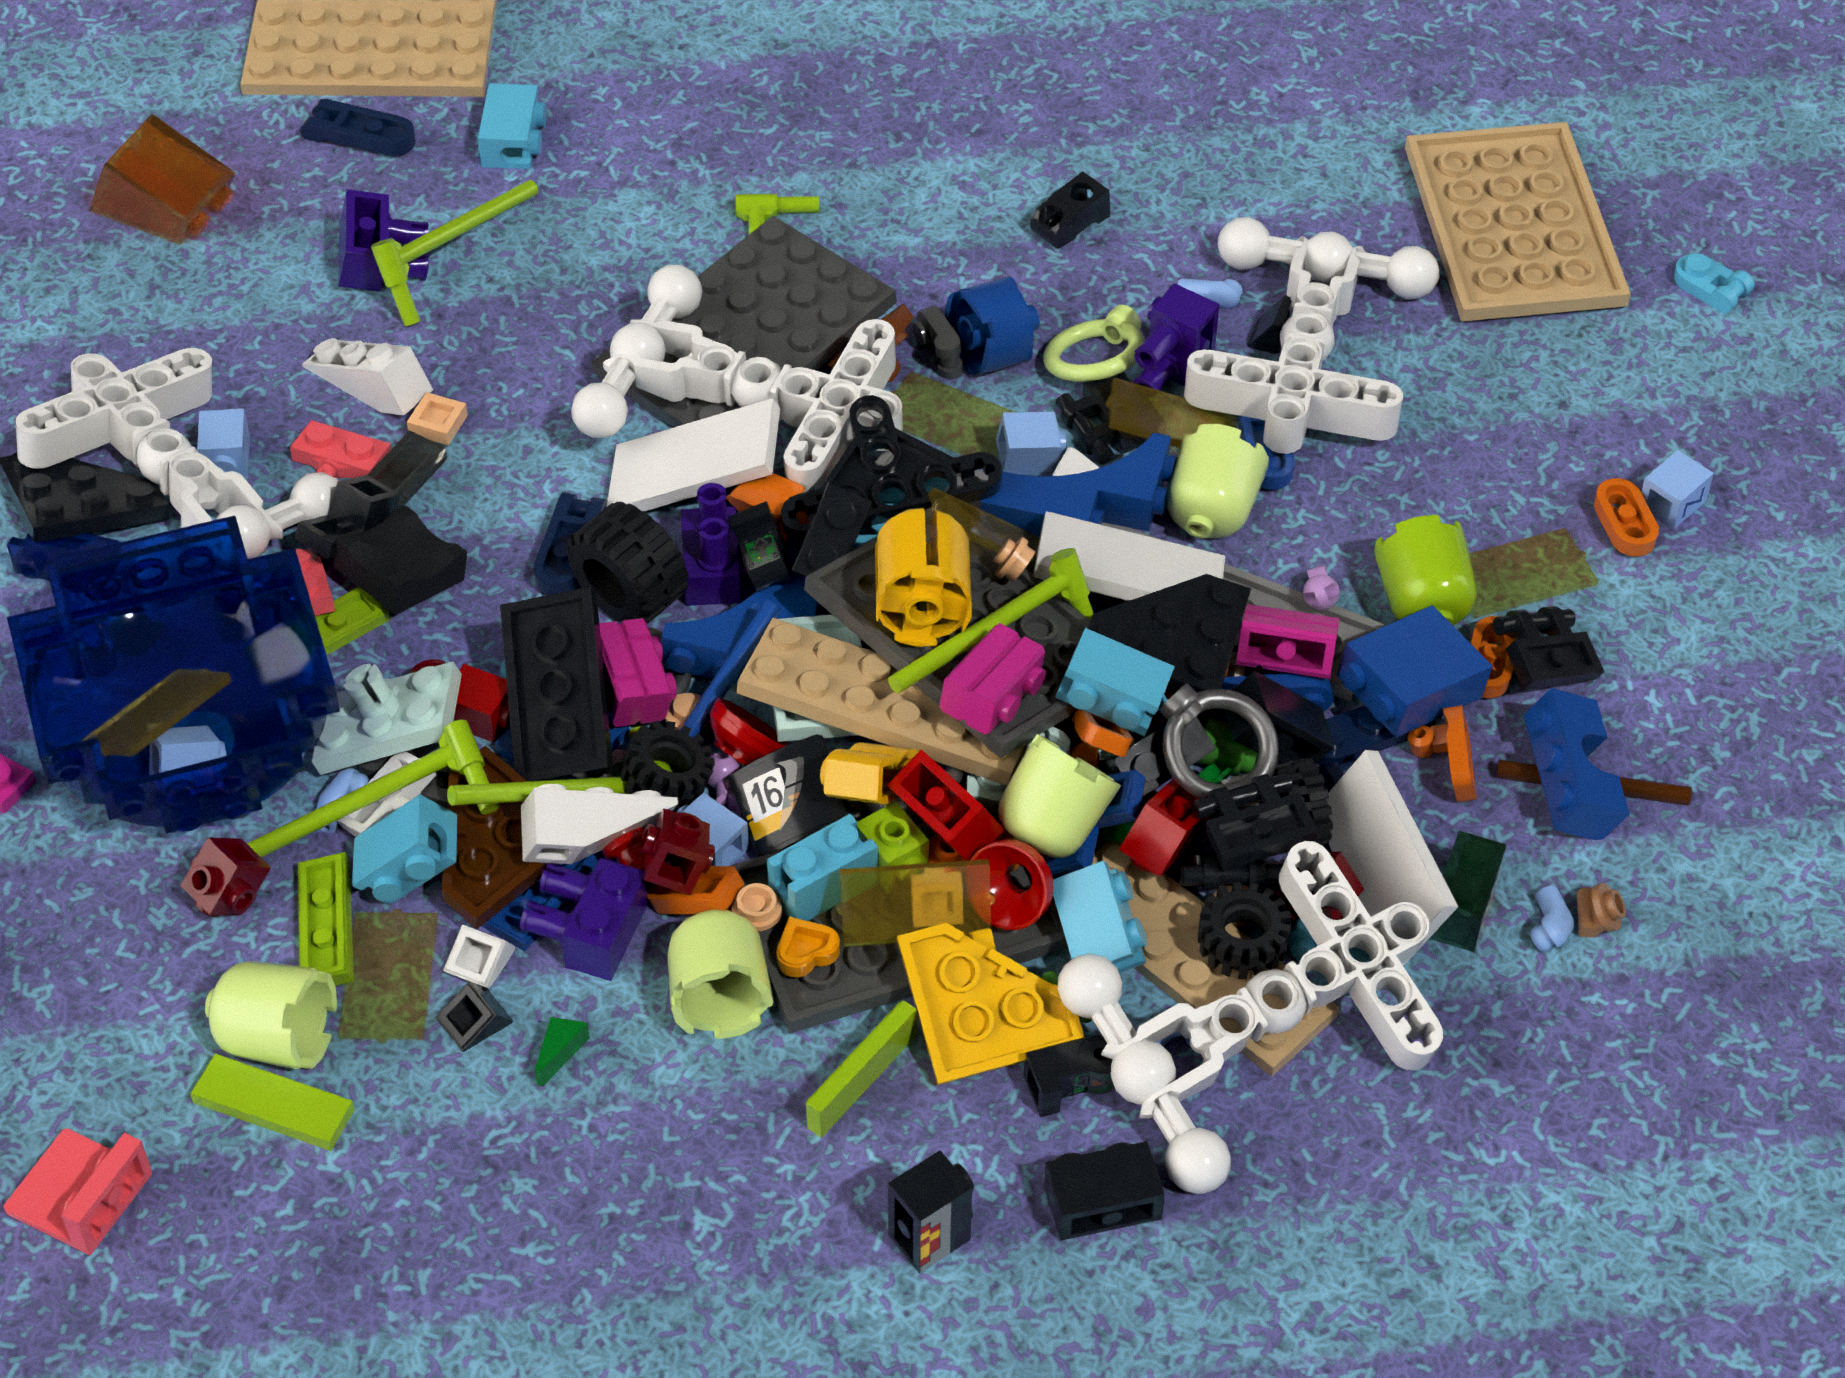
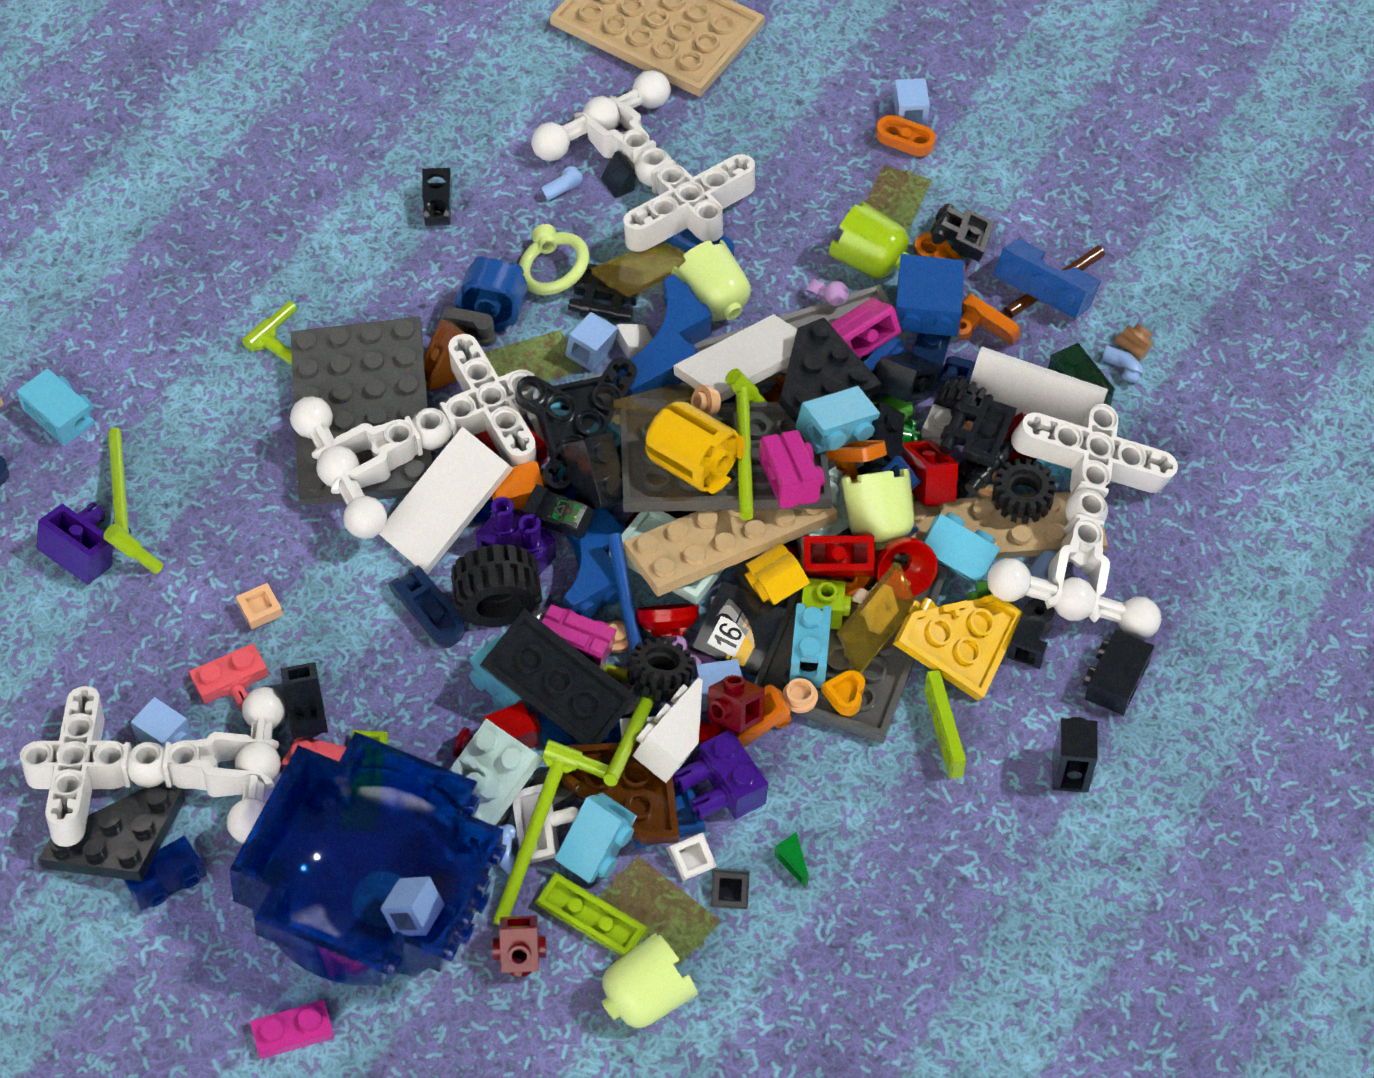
camera: 50 degrees left, 5 degrees up
(158, 710) = (366, 898): clear yellow piece -> none
(273, 1102) = (696, 1027): lime tile -> none
(374, 373) = (186, 614): white slope -> none
(400, 561) = (362, 698): black brick -> none
(409, 465) = (281, 646): clear smoke plate -> none
(718, 974) = (825, 743): yellowish green cylinder -> none
(1178, 327) = (596, 219): dark purple brick -> none
(1185, 707) = (887, 404): flat silver piece -> none

